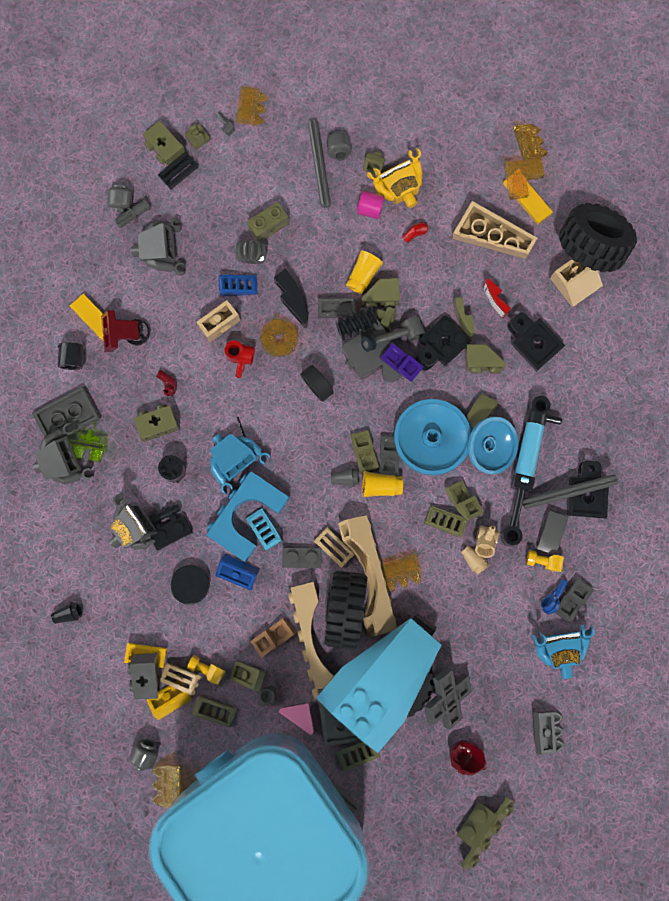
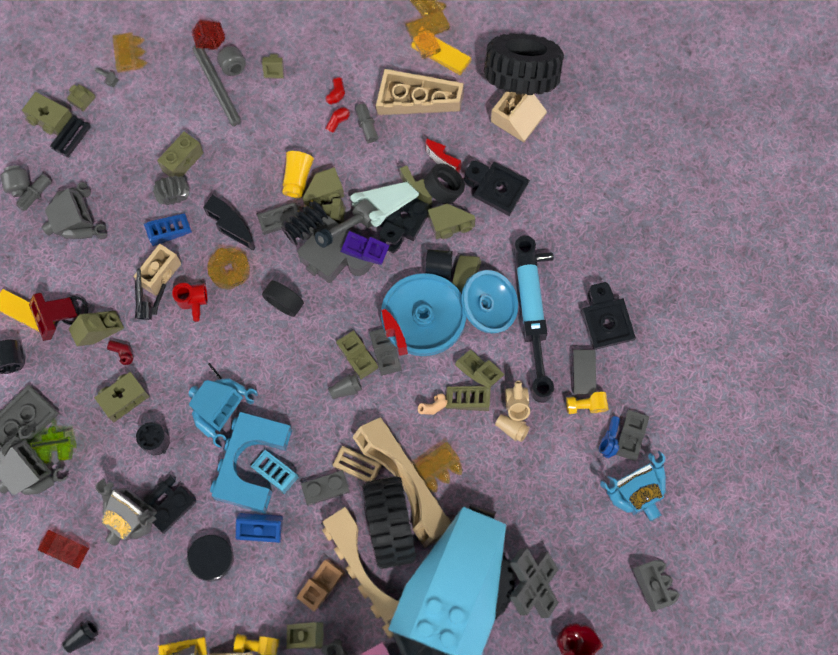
camera: 15 degrees left, 10 degrees down
(73, 536) = (63, 549): none -> clear red slope
(151, 354) = (94, 327): none -> olive slope
(196, 352) = (143, 309): none -> black plant
(326, 114) = (208, 34): none -> clear red brick
(370, 204) = (282, 106): dark pink piece -> none
(381, 485) = (385, 381): yellow plant -> none
(400, 182) = (305, 76): yellow torso -> none
(402, 443) = (393, 329): none -> red slope
(412, 520) = (431, 409): none -> light nougat arm
(423, 207) = (337, 93): none -> red arm
(434, 322) = (386, 200): none -> light aqua flag
(439, 244) = (366, 123): none -> dark grey axle
(461, 395) = (439, 263): none -> black piece
(480, 328) = (451, 177): none -> black tyre
(570, 491) = (586, 322): dark grey axle -> none

